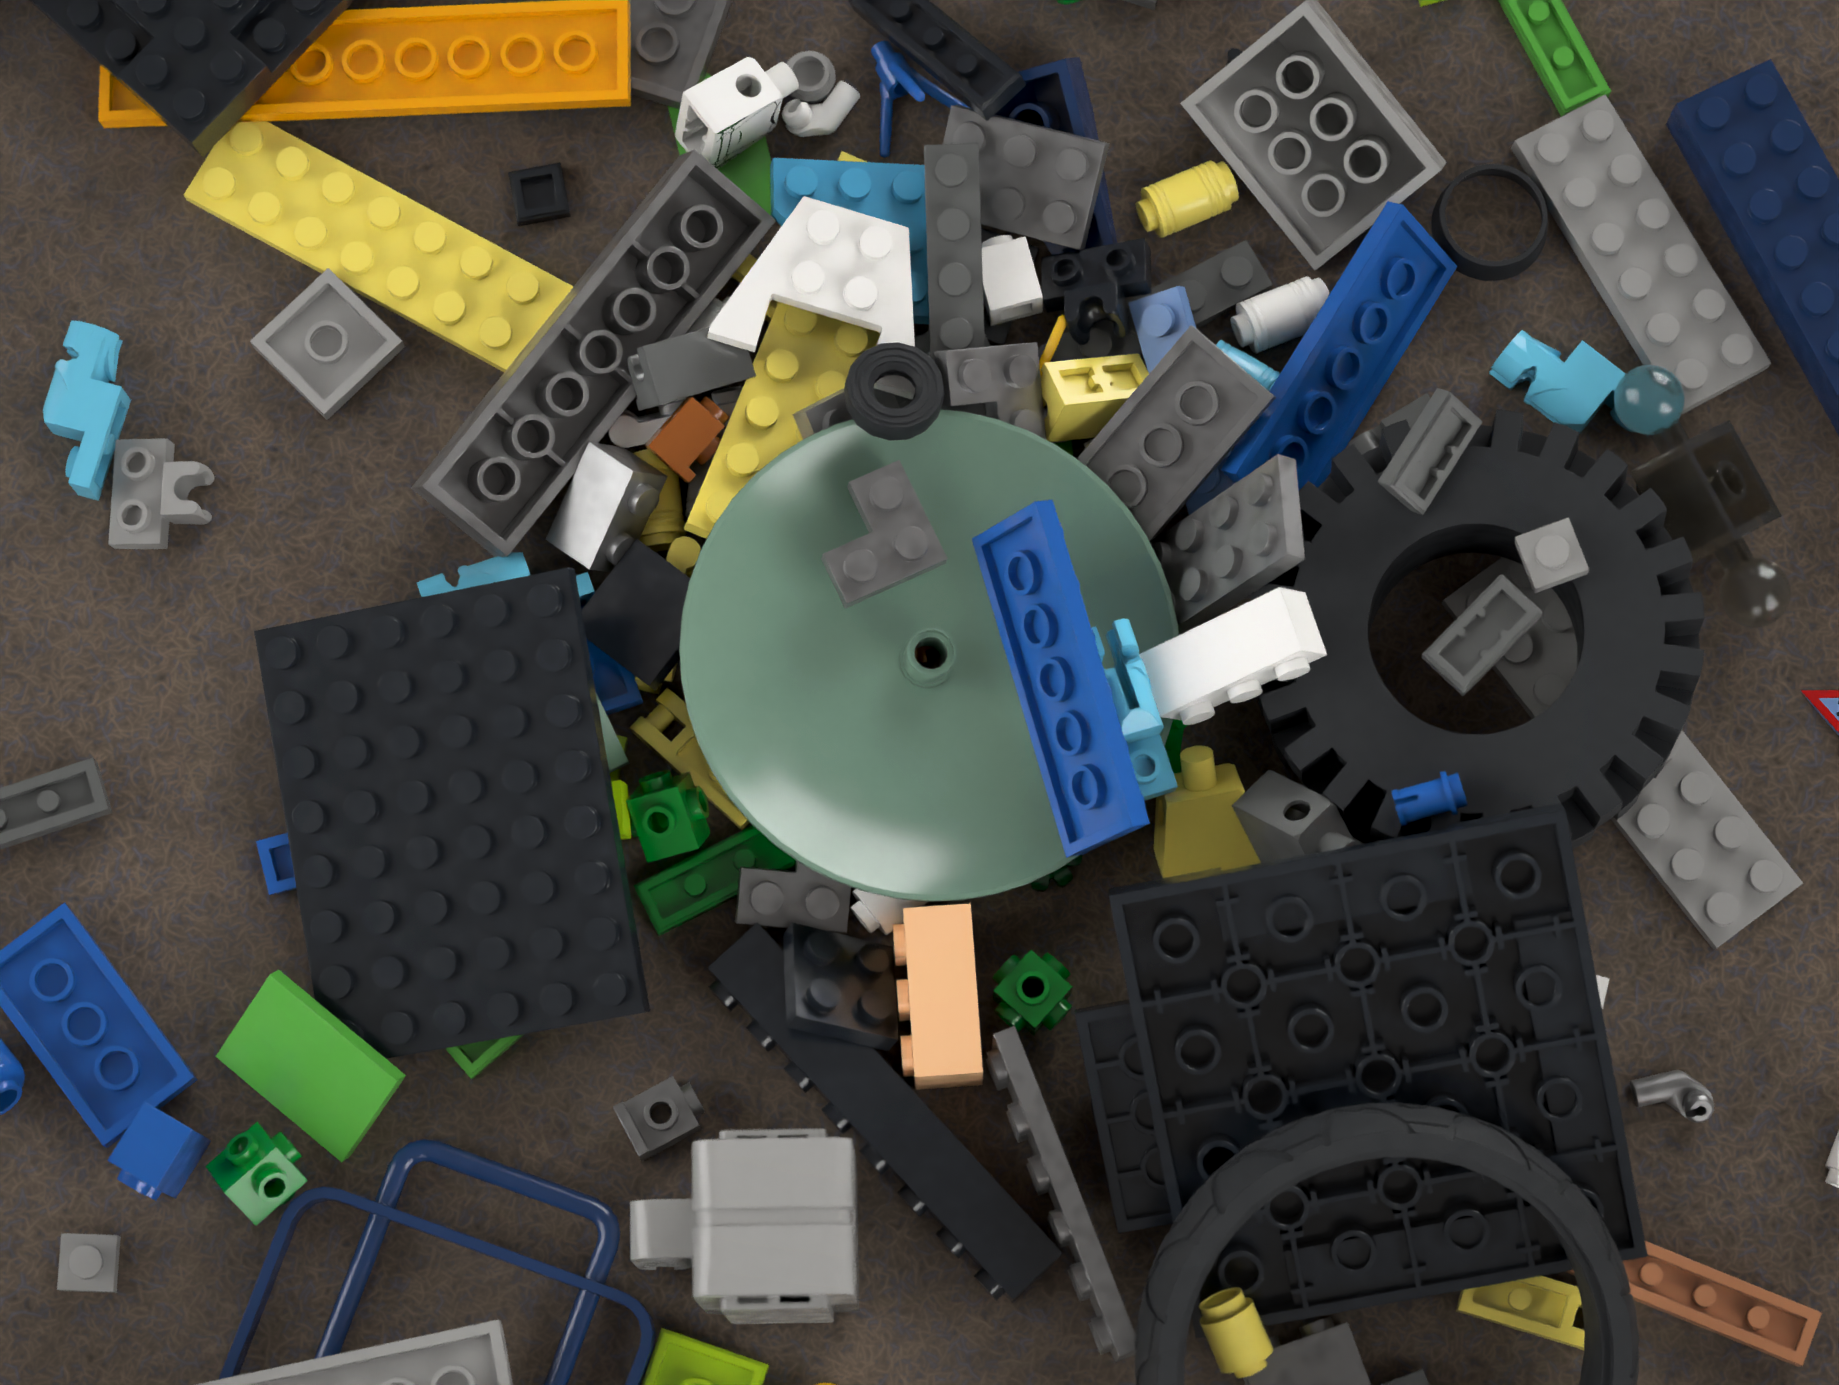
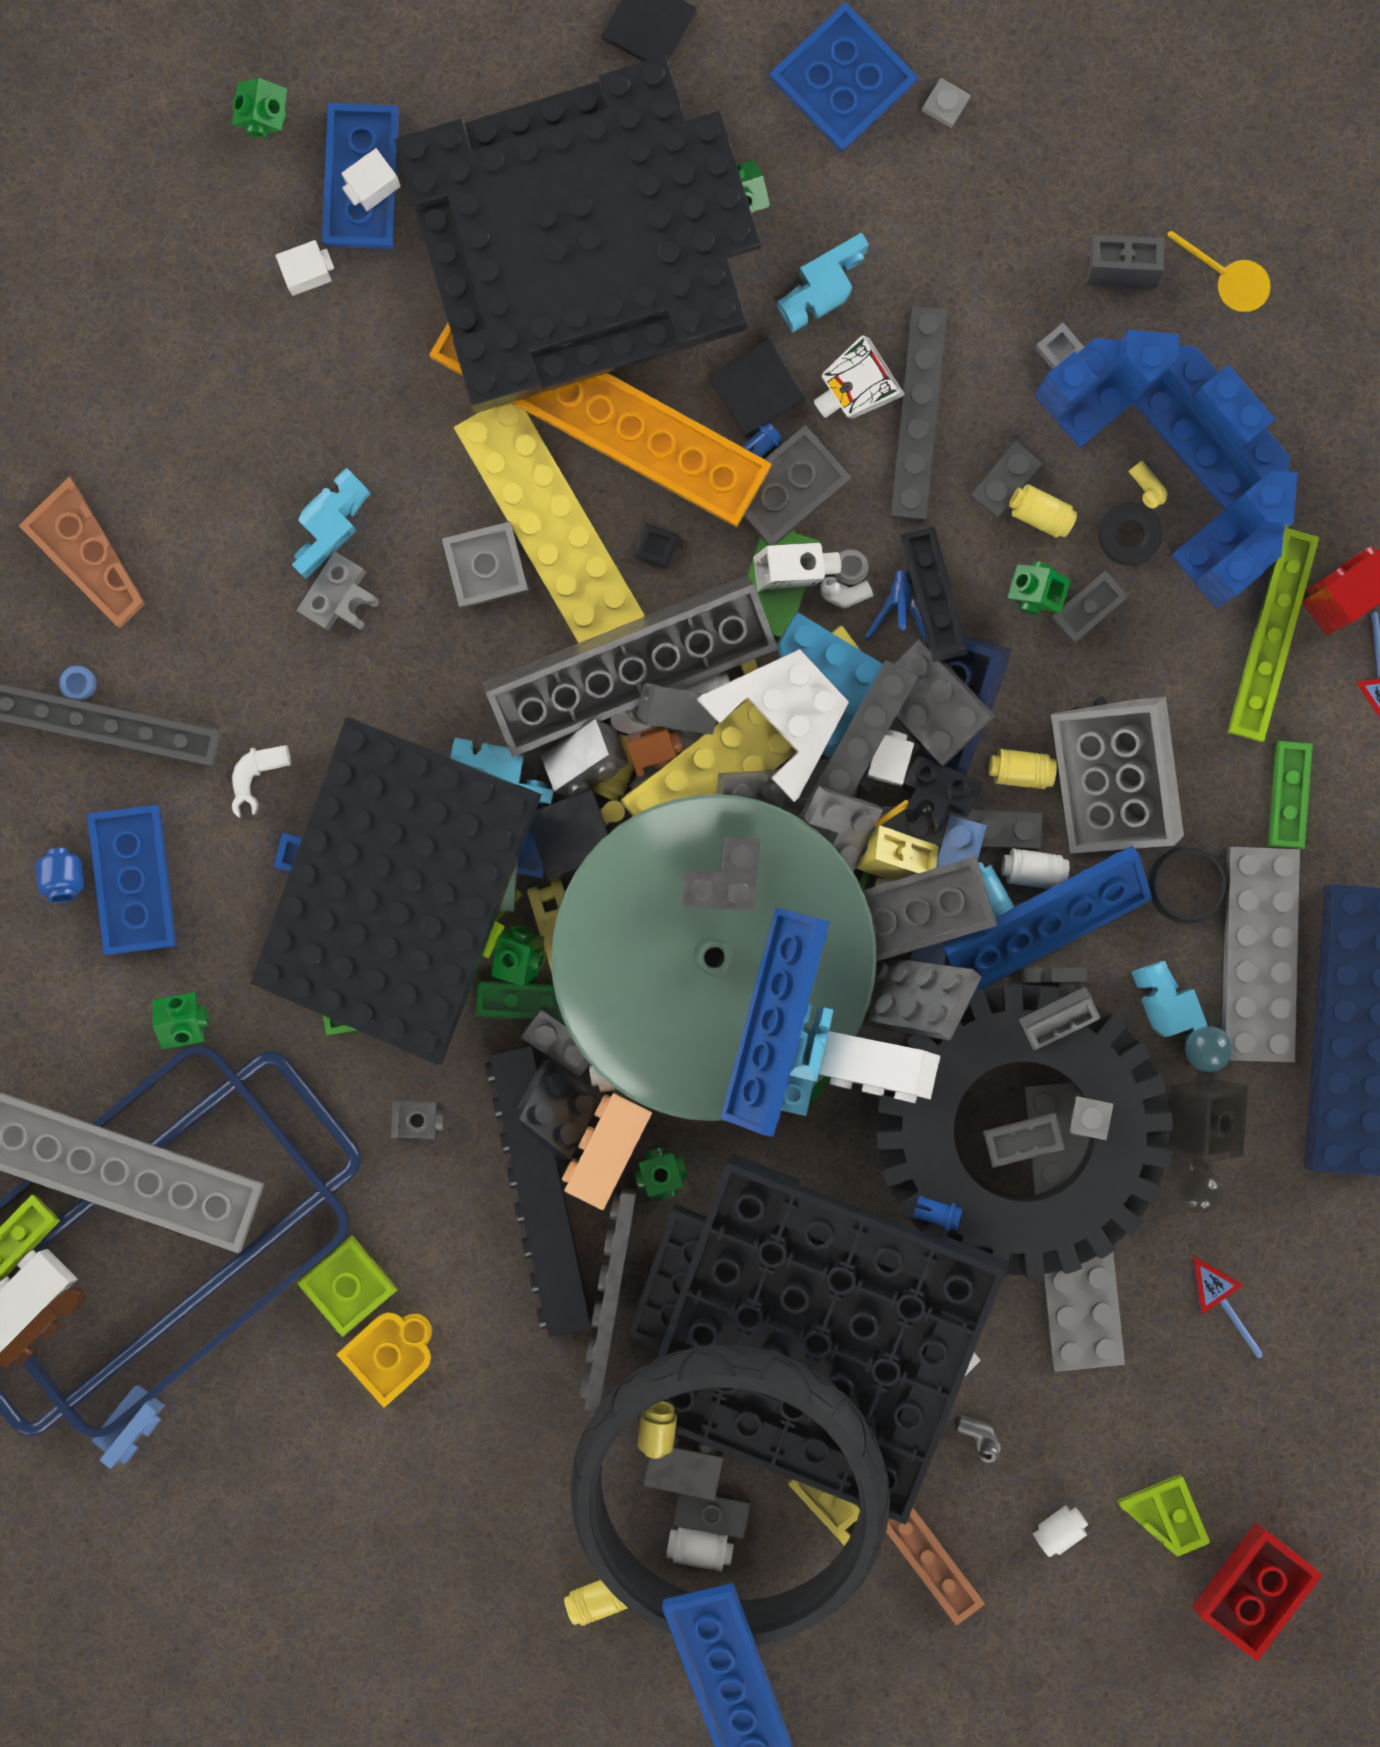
camera: 20 degrees right, 10 degrees up
(88, 1263) = (61, 1013): light grey plate -> none
(157, 1153) = (129, 979): blue brick -> none
(163, 778) = (251, 765): none -> white piece
(310, 1065) = (241, 978): bright green tile -> none
(763, 1227) = (429, 1229): light grey piece -> none
(894, 422) = (800, 785): black tyre -> none
(1197, 821) = (813, 1139): light yellow torso -> none
(1289, 819) = (869, 1186): dark grey torso -> none

